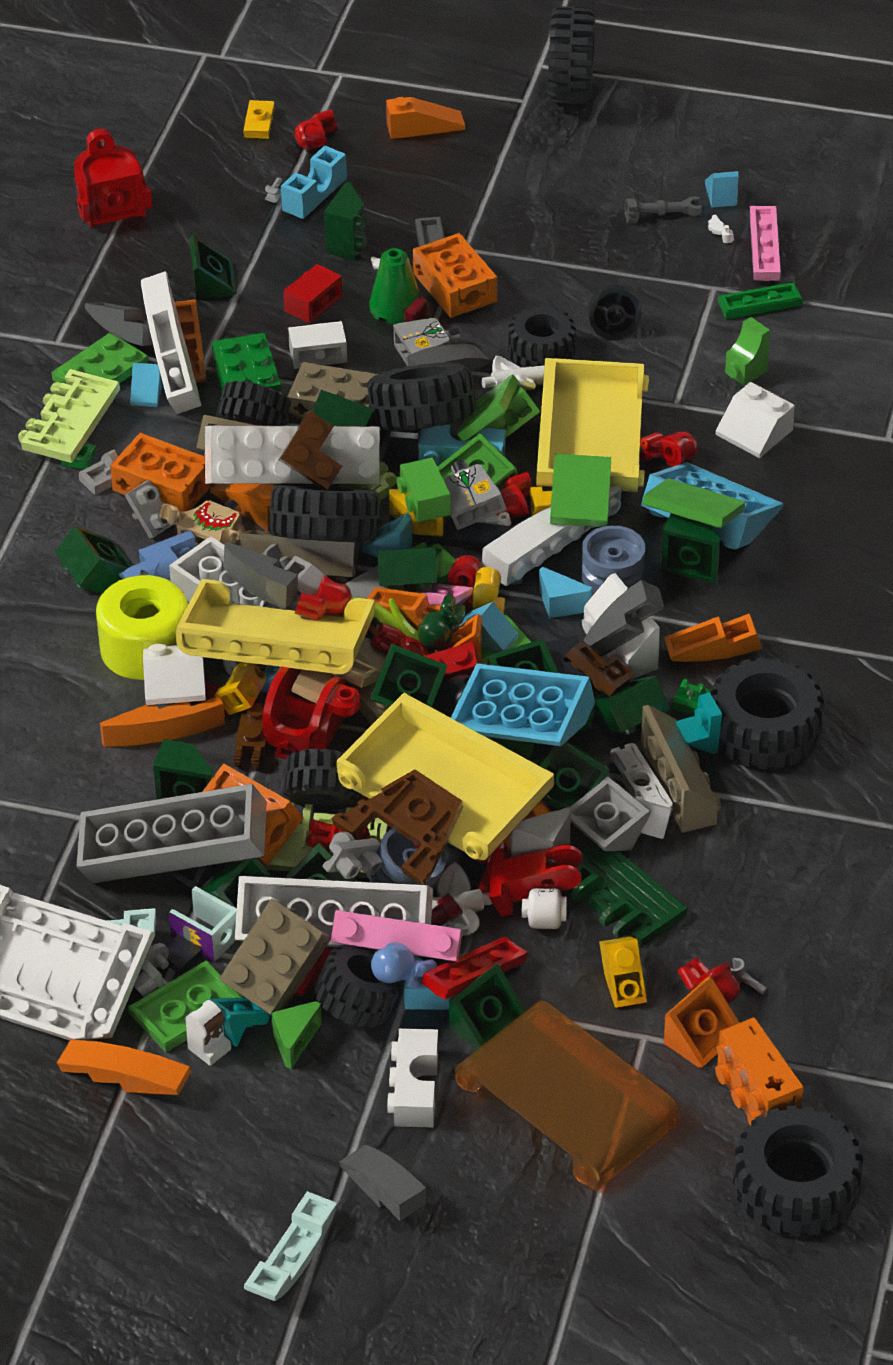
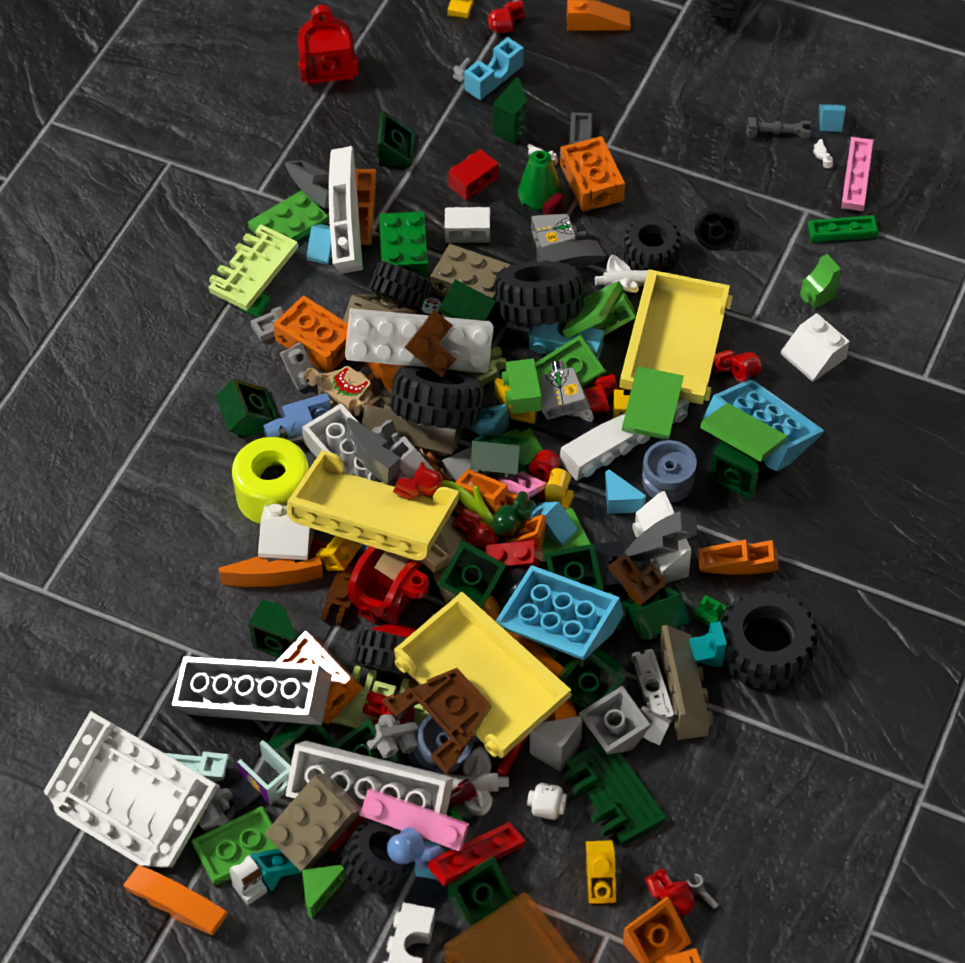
camera: 10 degrees right, 10 degrees up
(516, 876) = (530, 768): red piece -> none

